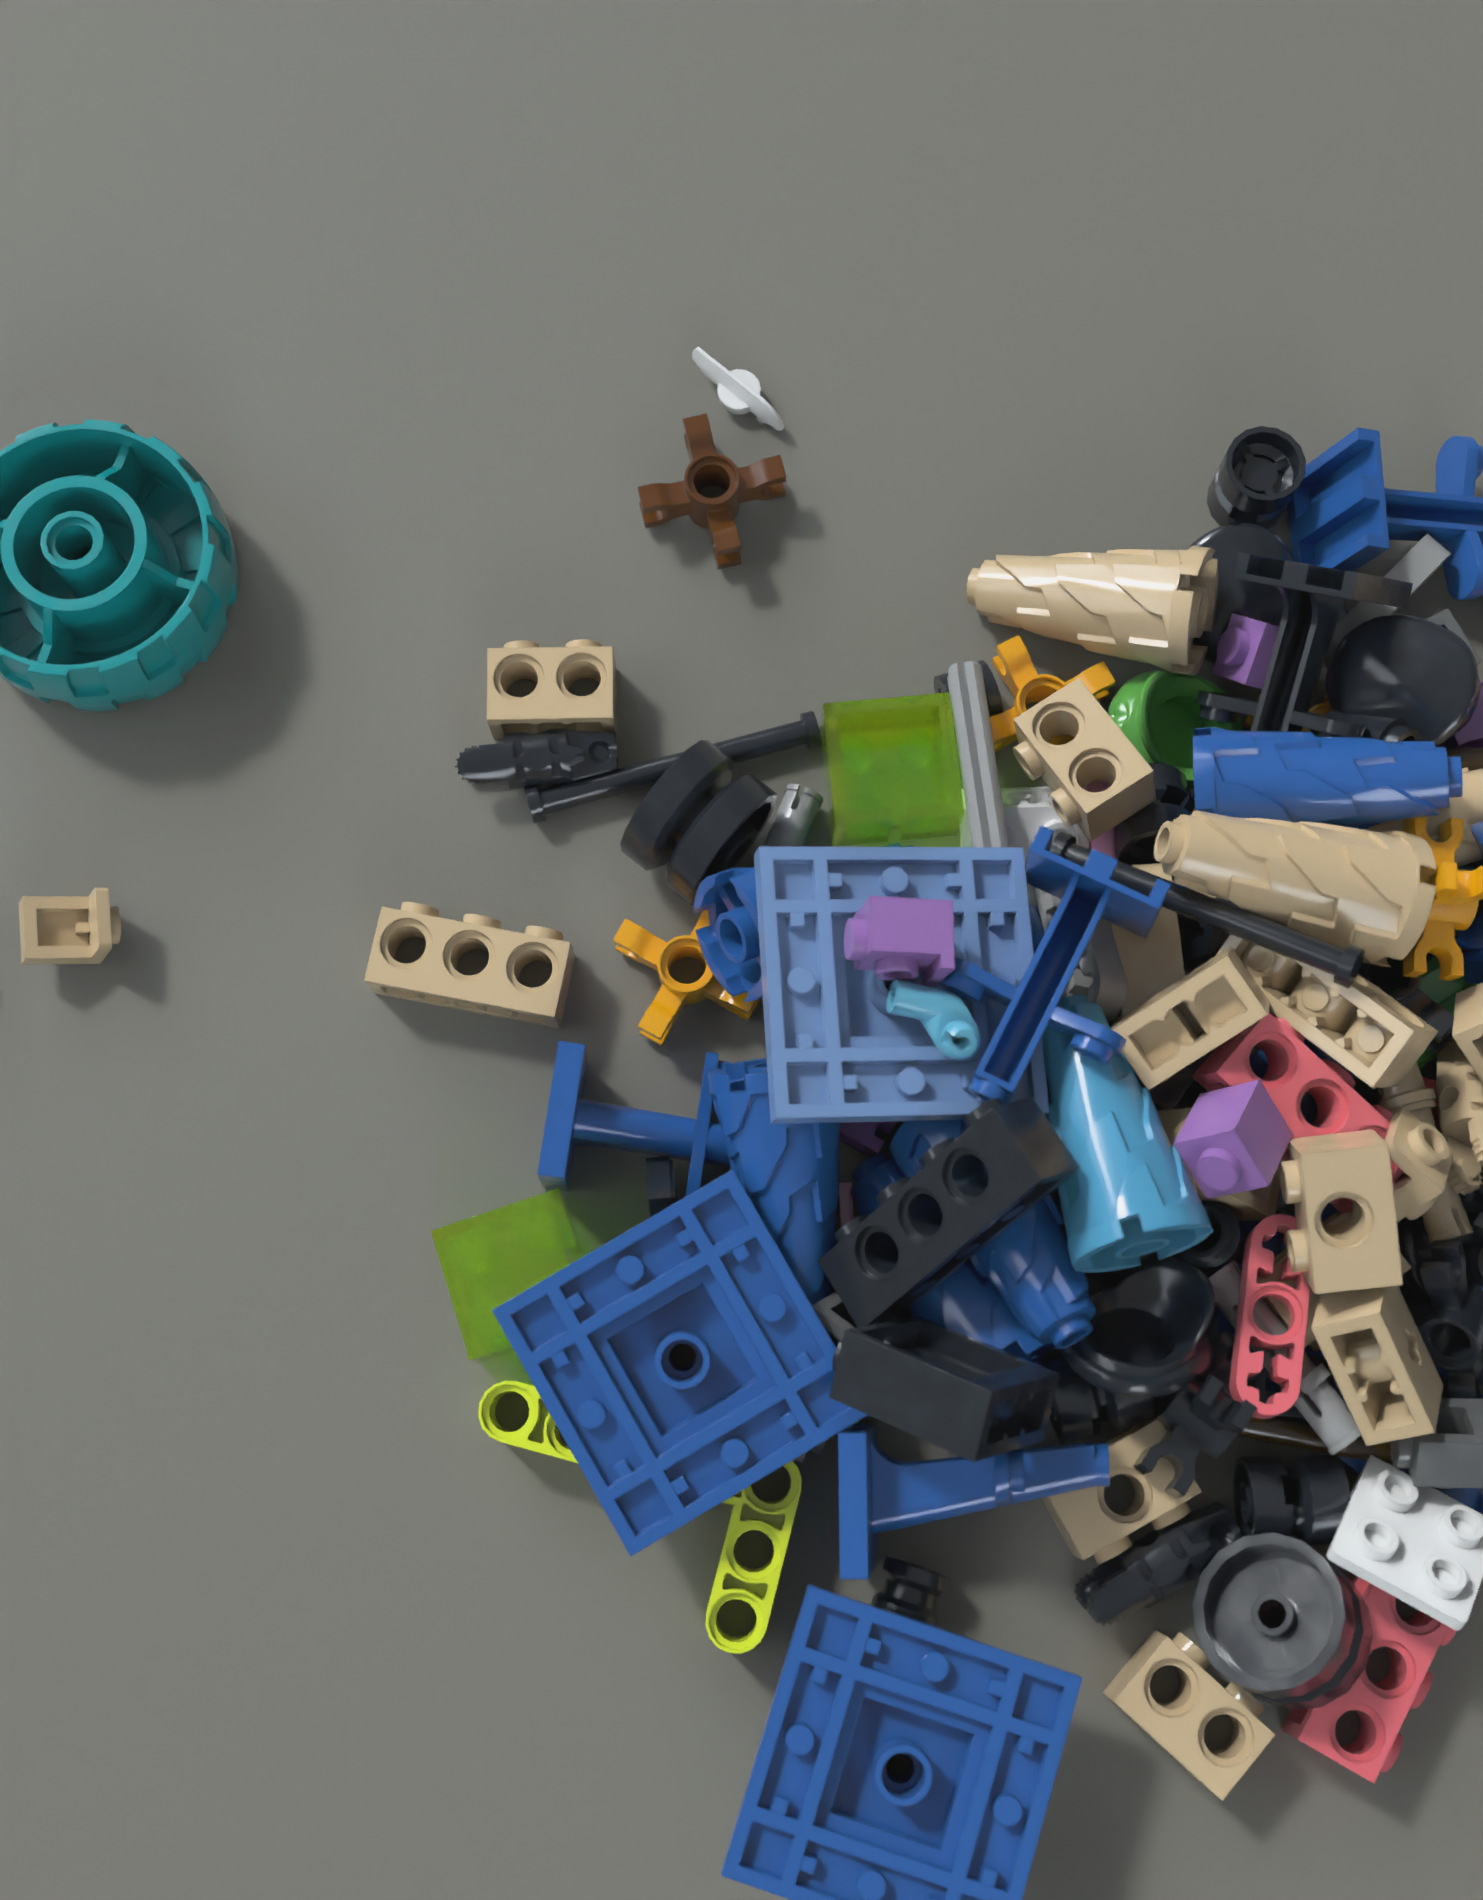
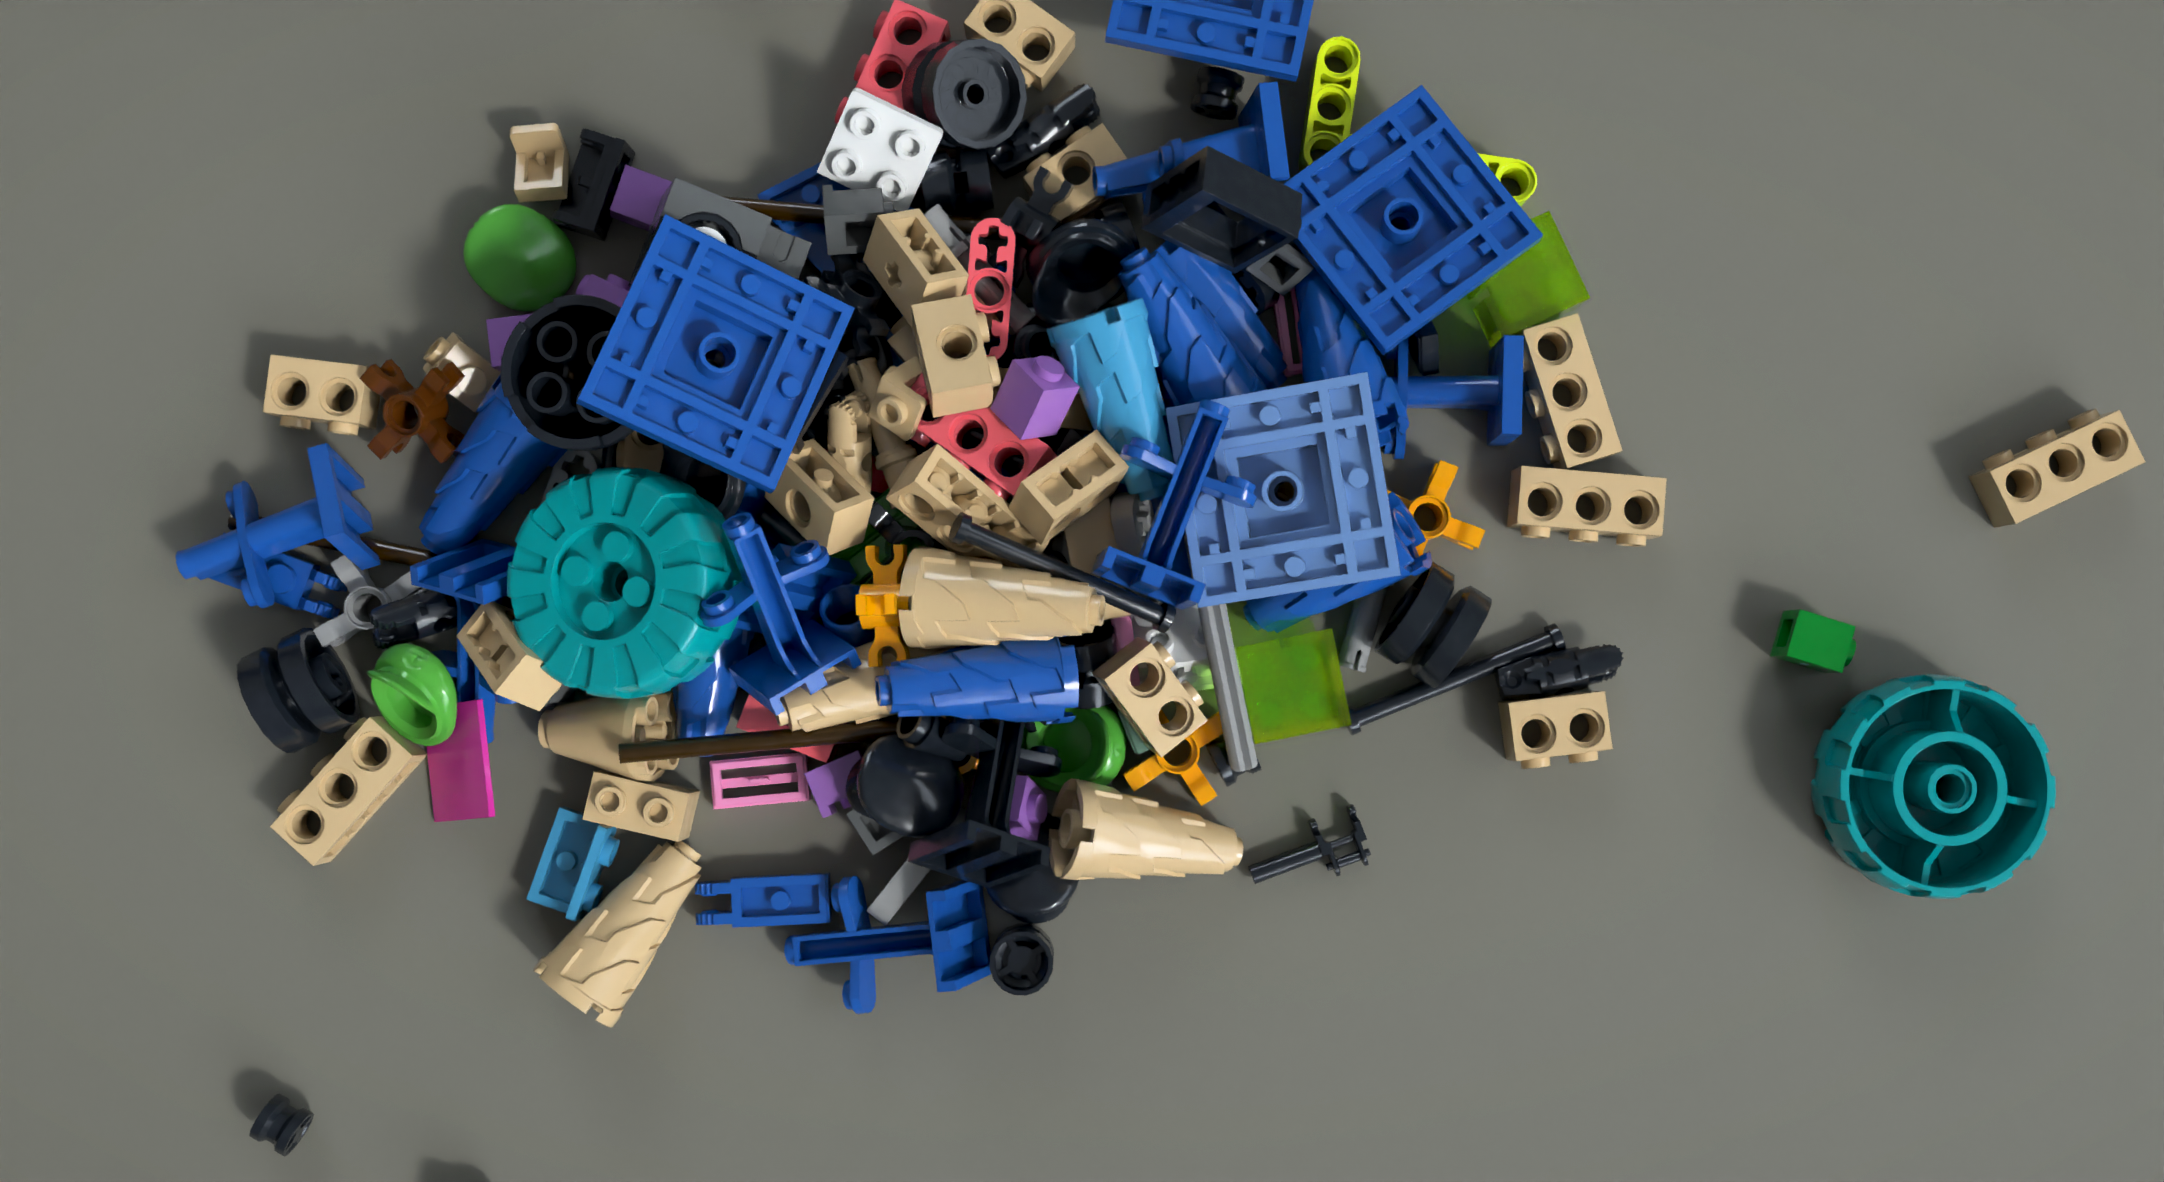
camera: 170 degrees right, 10 degrees up
(68, 928) = (1892, 501): tan bracket -> none
(203, 761) = (1814, 641): none -> green brick
(452, 1092) = (1588, 407): none -> tan brick
(667, 501) = (1459, 928): reddish brown pin -> none
(737, 390) = (1439, 1002): white piece -> none
(873, 578) = (1314, 851): none -> black piece
(902, 938) = (1291, 511): medium lavender brick -> none
(910, 1246) = (1231, 331): black brick -> none
(941, 1015) = (1253, 464): medium azure arm -> none

